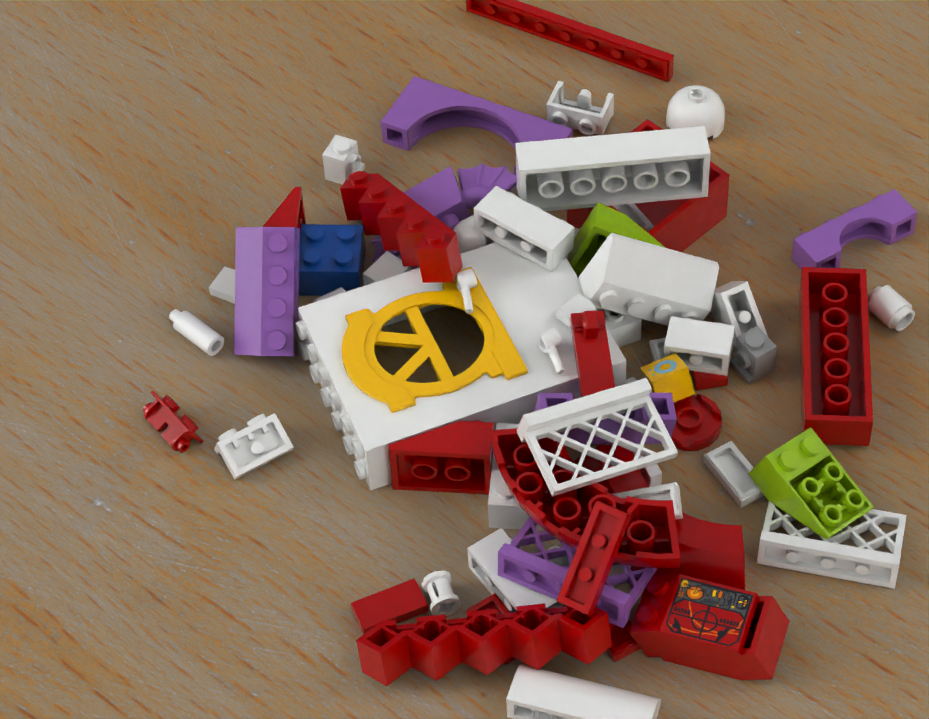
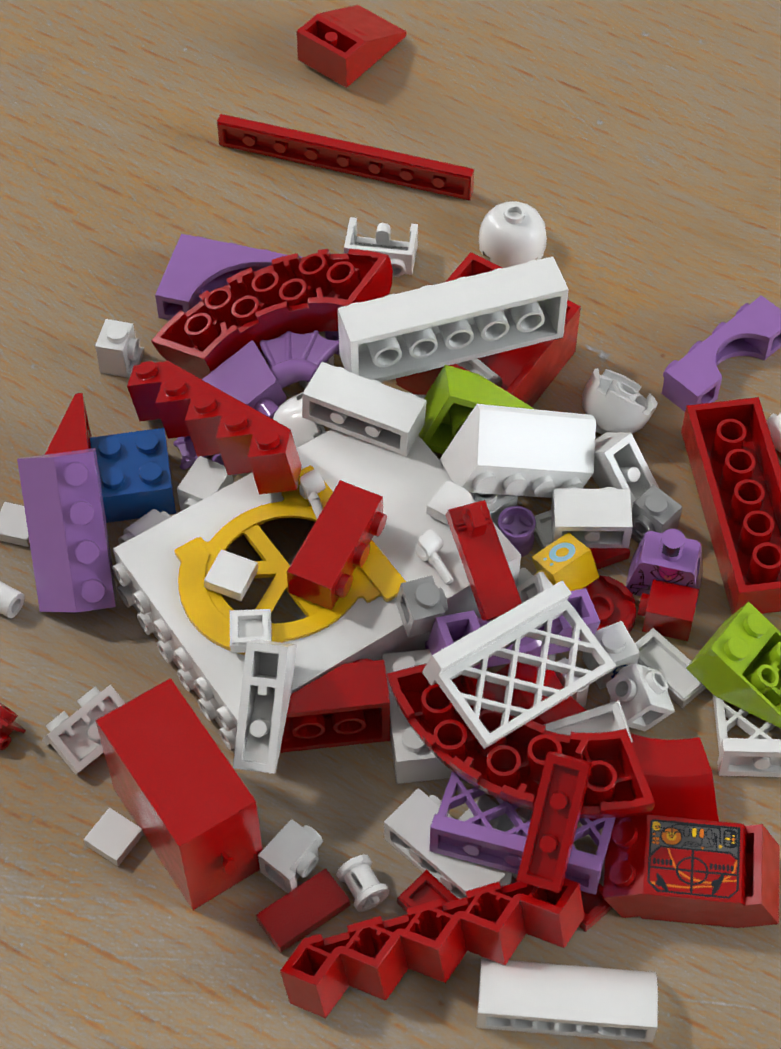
camera: 15 degrees left, 5 degrees up
(253, 529) = (113, 837): none -> white tile
(309, 497) = (182, 792): none -> red container
(385, 339) = (231, 575): none -> white tile
(387, 437) = (263, 704): none -> white slope
(388, 563) = (290, 855): none -> white brick
(390, 383) = (249, 626): none -> white tile
(471, 139) = (266, 303): none -> red brick
(473, 328) = (336, 545): none -> red brick
(530, 381) = (420, 604): none -> light grey brick
(635, 347) = (518, 527): none -> medium lavender wheel
(692, 455) = (620, 648): none -> white brick
(703, 490) = (641, 695): none -> white brick
(745, 258) = (616, 403): none -> white cylinder
(748, 427) = (669, 609): none -> red brick
(754, 395) = (667, 559): none -> medium lavender torso

